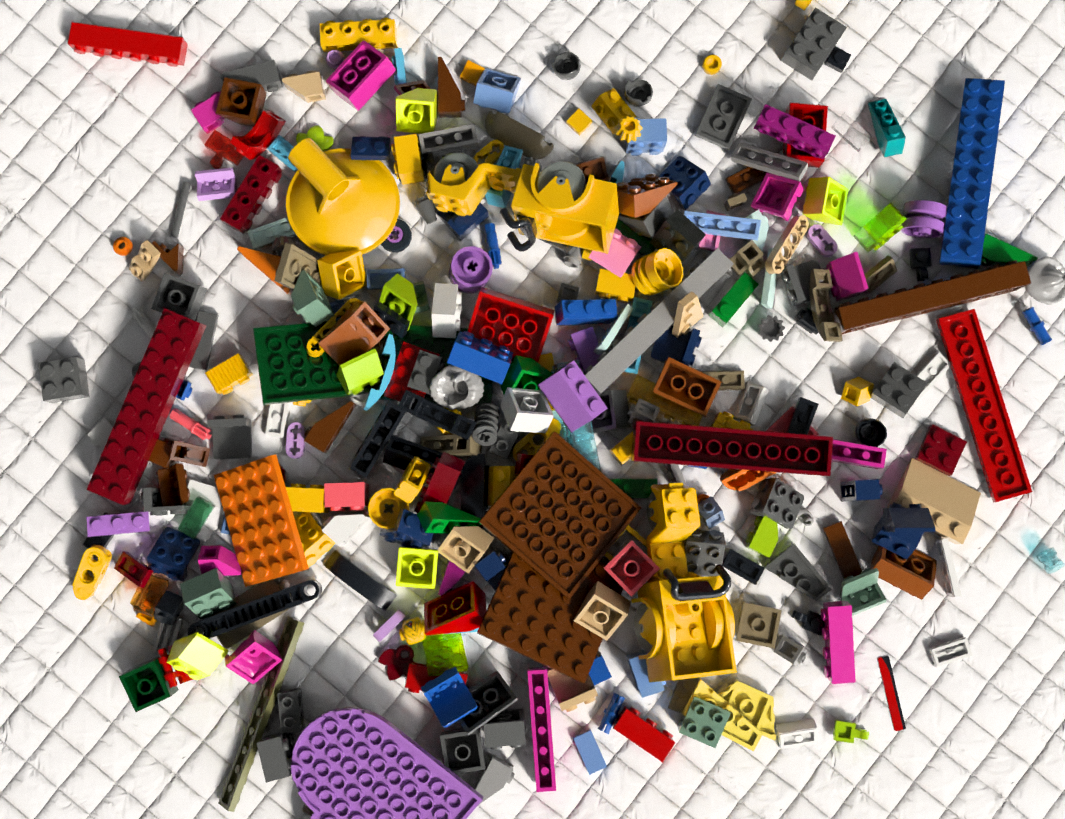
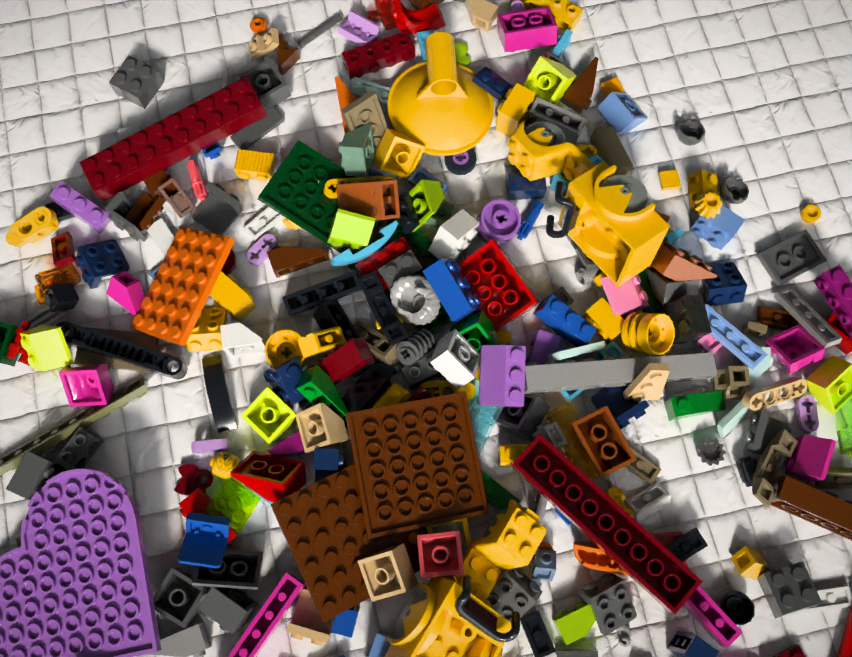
camera: 40 degrees right, 10 degrees down
(196, 517) = (141, 248): clear green tile -> none
(208, 594) = (97, 308): sand green brick -> none
(343, 495) = (262, 316): coral brick -> none
(426, 209) = (499, 157): dark grey cone -> none

